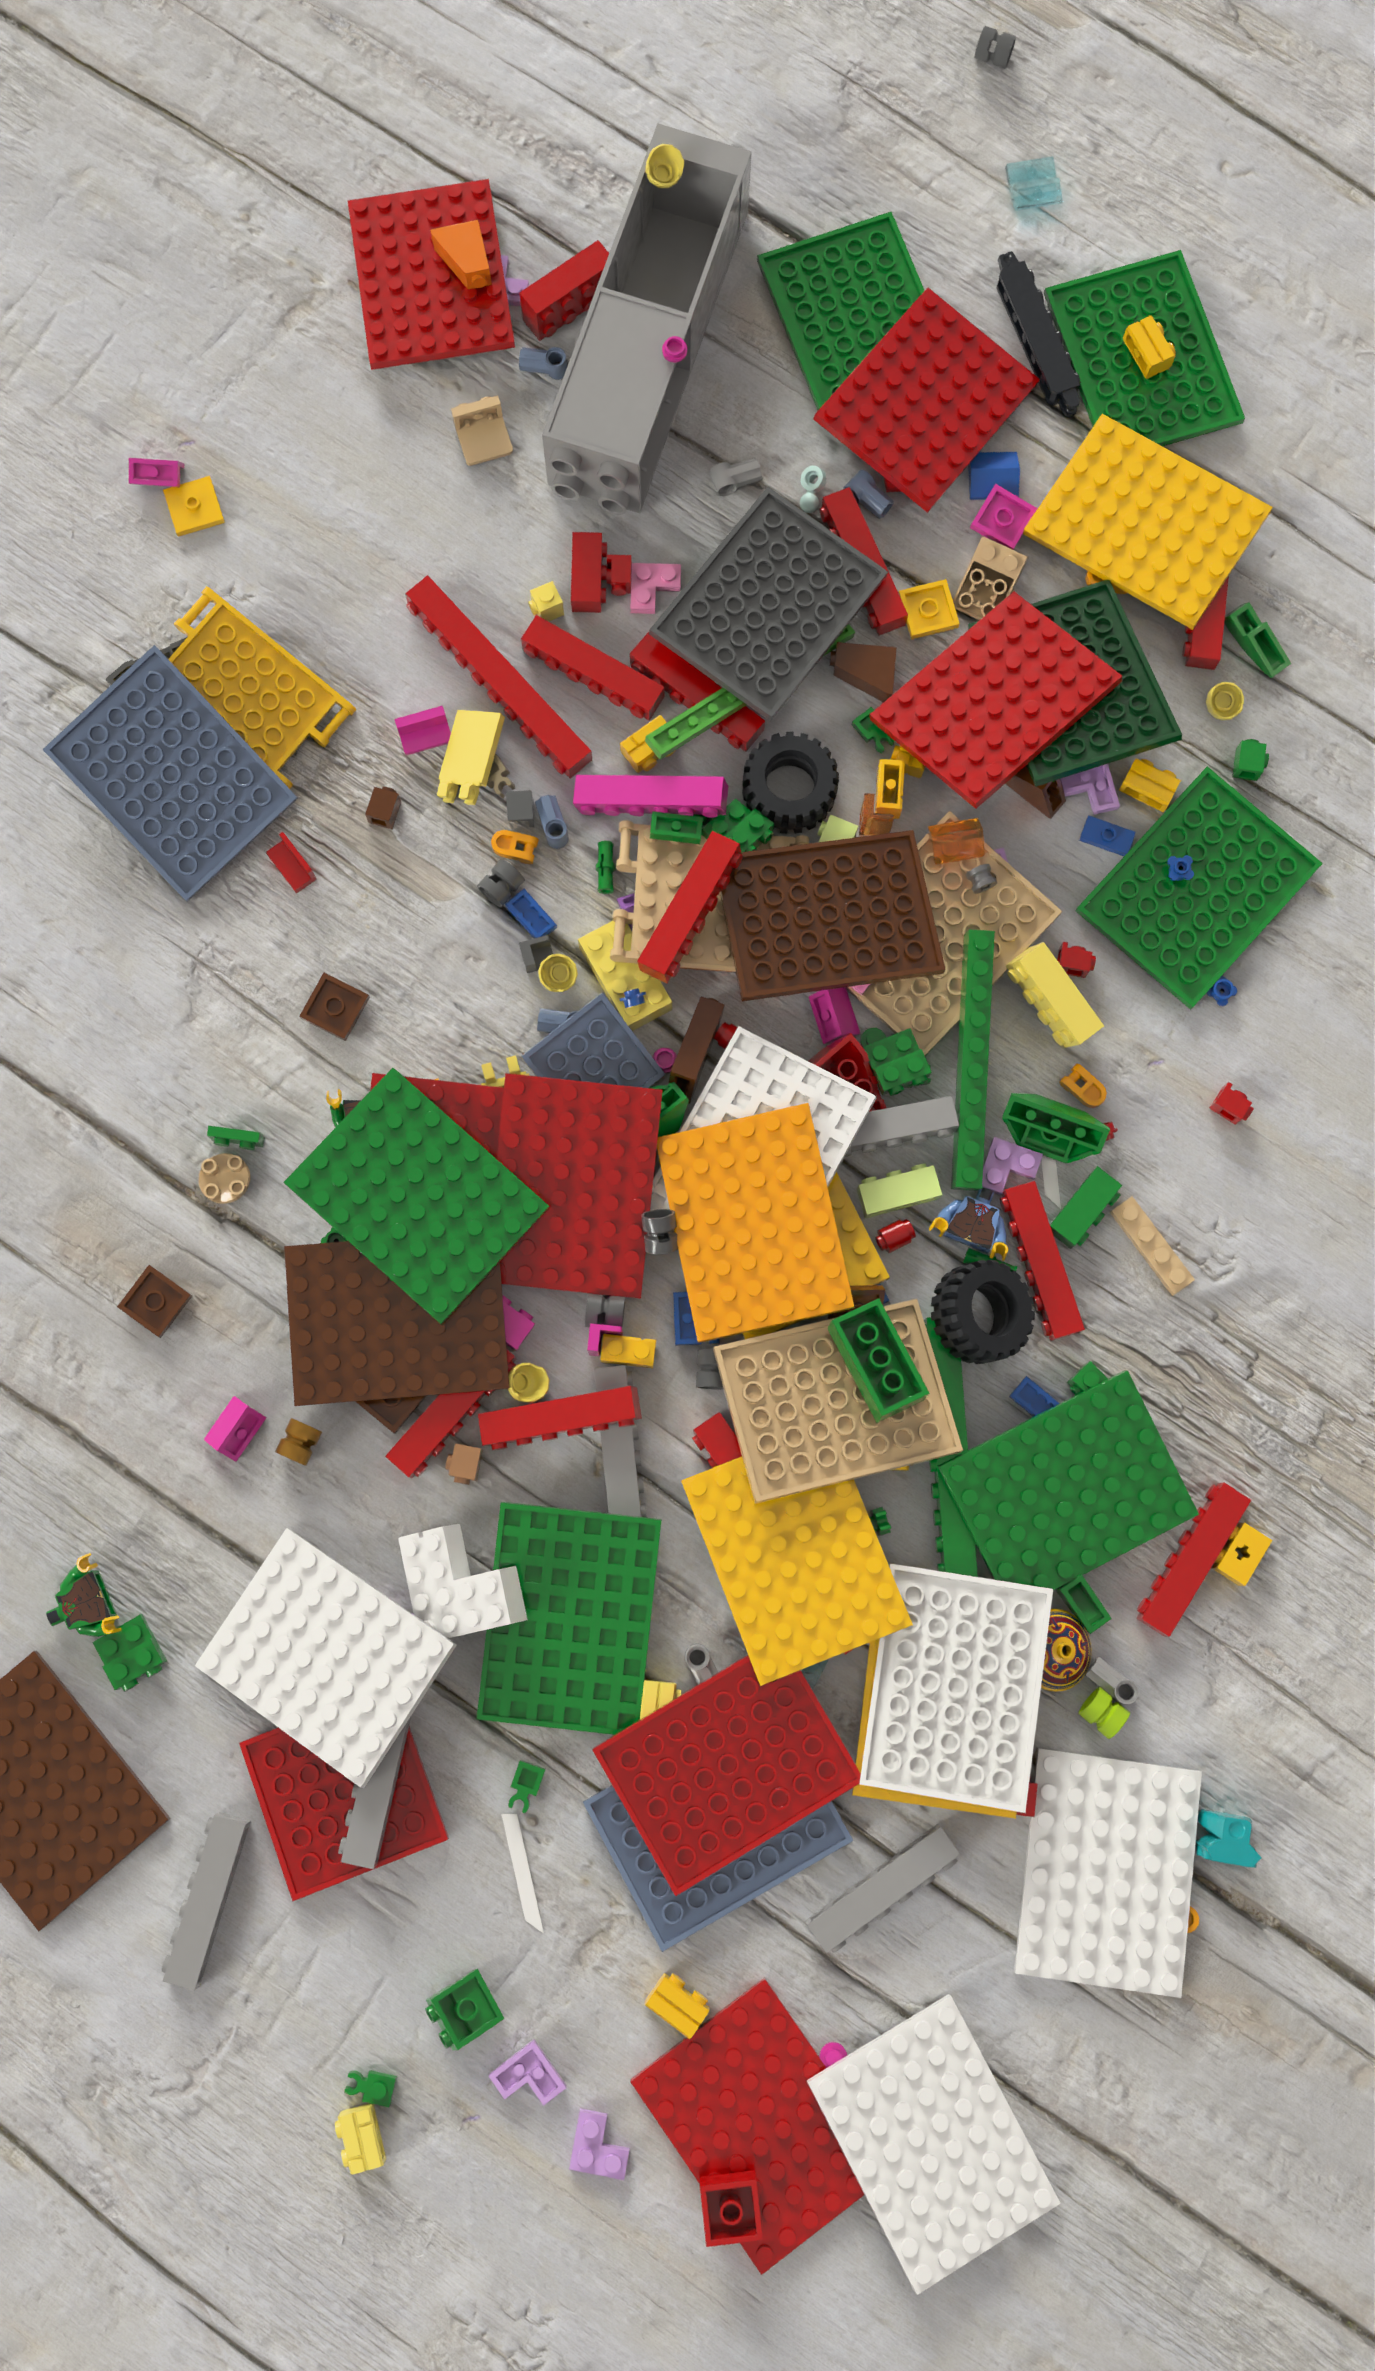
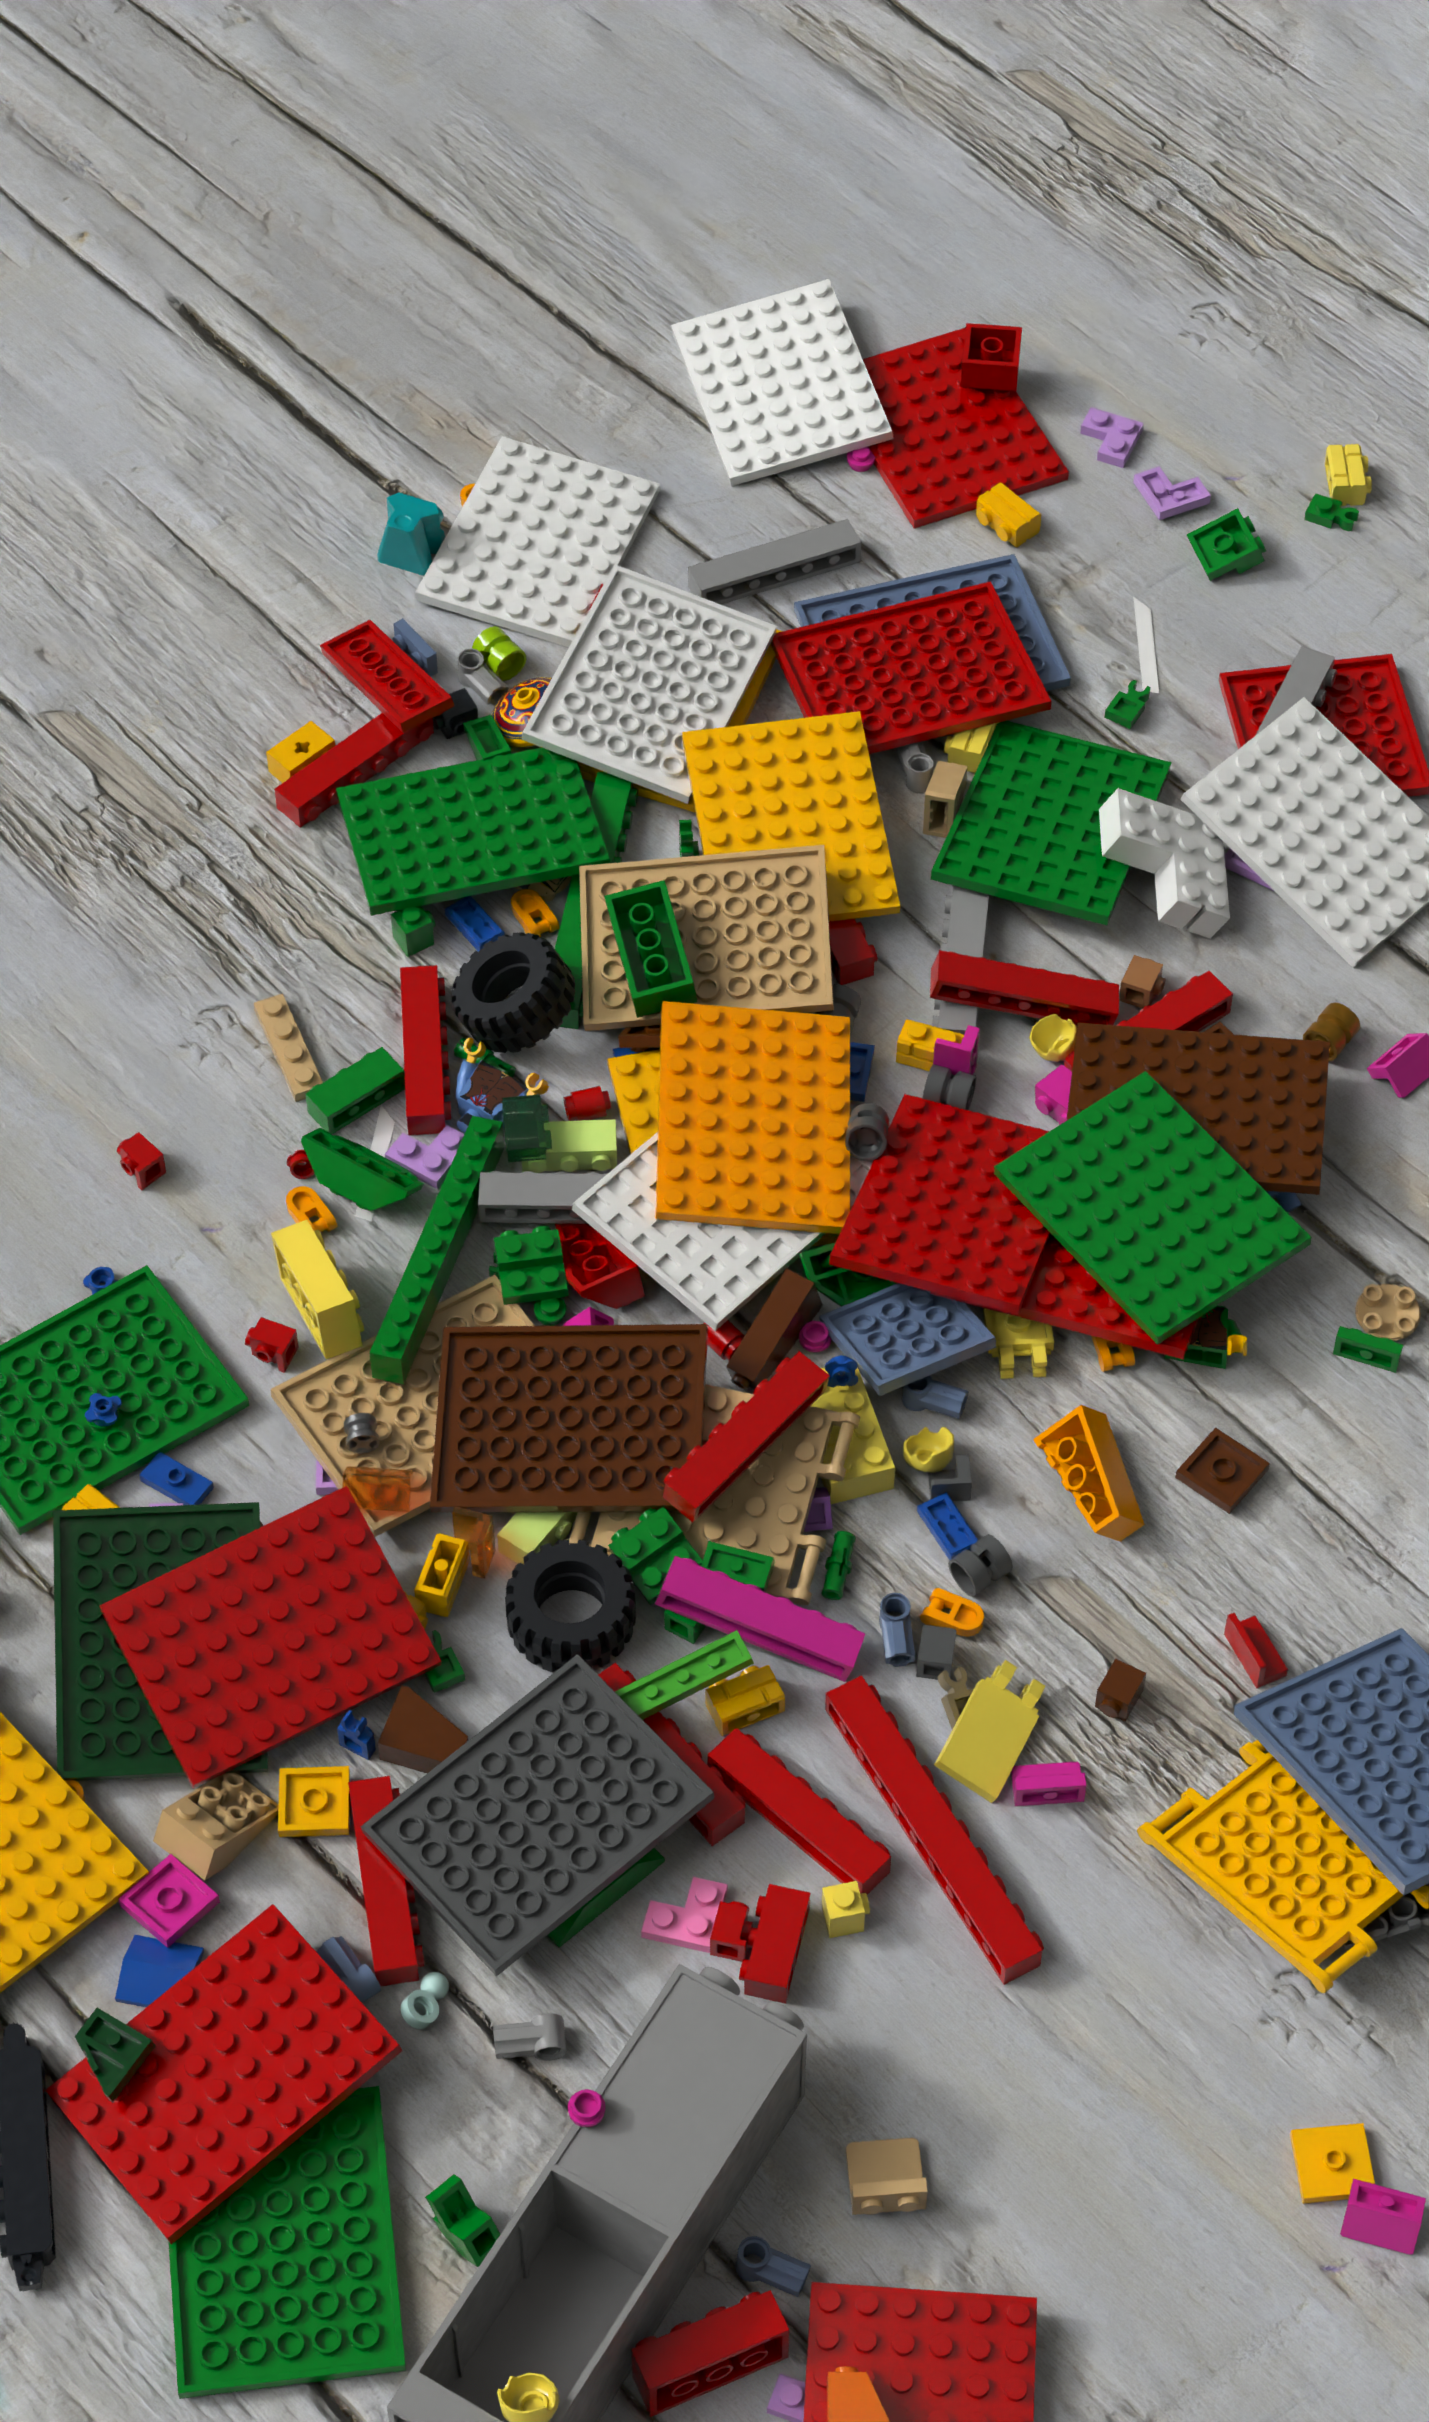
camera: 165 degrees left, 25 degrees down
(430, 978) = (1093, 1471): none -> light orange wedge
(668, 1632) = (943, 798): none -> tan slope
(742, 345) = (461, 2221): none -> green brick
(913, 656) = (356, 1736): none -> blue plate
(935, 1177) = (524, 1128): none -> clear green brick
(997, 1427) = (529, 905): none -> light orange plate
(1003, 392) = (112, 2051): none -> dark green wing
(1122, 1632) = (452, 720): none -> black brick
(1191, 1711) = (415, 647): none -> sand blue plate
(1195, 1651) = (387, 676): none -> red plate

